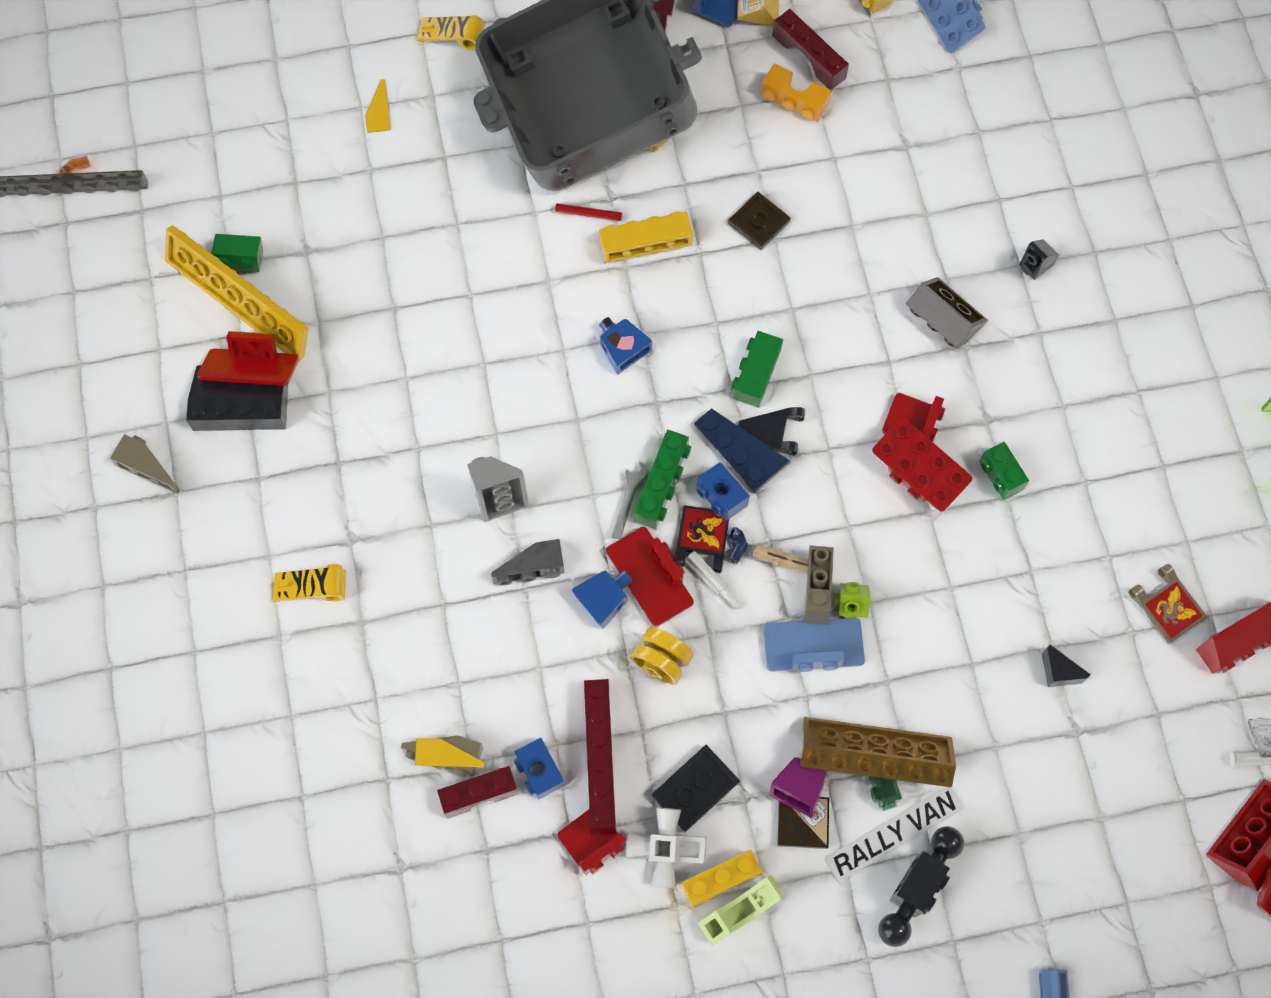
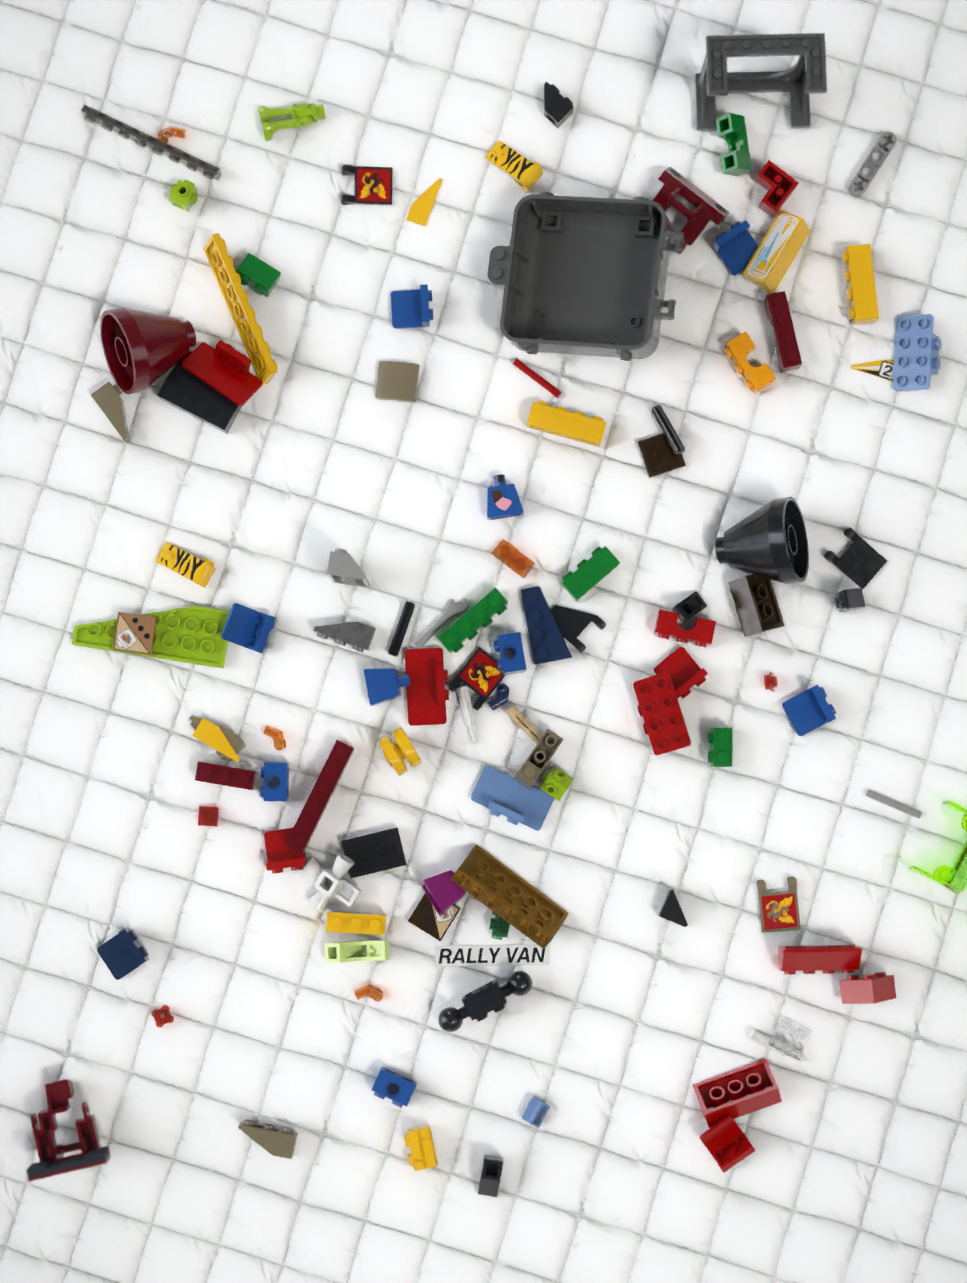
camera: 30 degrees right, 15 degrees up
(116, 215) = (183, 195): none -> lime brick
(141, 376) = (142, 345): none -> dark red cone
(205, 86) = (302, 115): none -> lime piece
(288, 687) = (134, 633): none -> tile
(312, 118) = (372, 185): none -> flag
(343, 664) = (180, 636): none -> lime wing
(417, 614) = (248, 628): none -> blue bracket
(420, 207) = (411, 308): none -> blue bracket
(443, 284) = (397, 381): none -> dark tan slope
(481, 851) = (208, 816): none -> clear red plate
(514, 718) = (278, 737): none -> clear orange arm
(588, 530) = (401, 628): none -> black axle
(667, 398) = (513, 558): none -> clear orange slope
(753, 191) = (668, 429): none -> black axle
(780, 952) = (371, 991): none -> clear orange arm
(871, 379) = (667, 626): none -> red arch
(880, 352) = (689, 607): none -> black slope
(922, 241) = (768, 543): none -> black cone
(925, 40) = (880, 368): none -> sticker
(1011, 379) = (770, 682): none -> clear red plate
(1020, 220) = (859, 561): none -> black flag
(1069, 385) = (809, 710): none -> blue bracket
(1214, 436) = (893, 803): none -> light grey bar

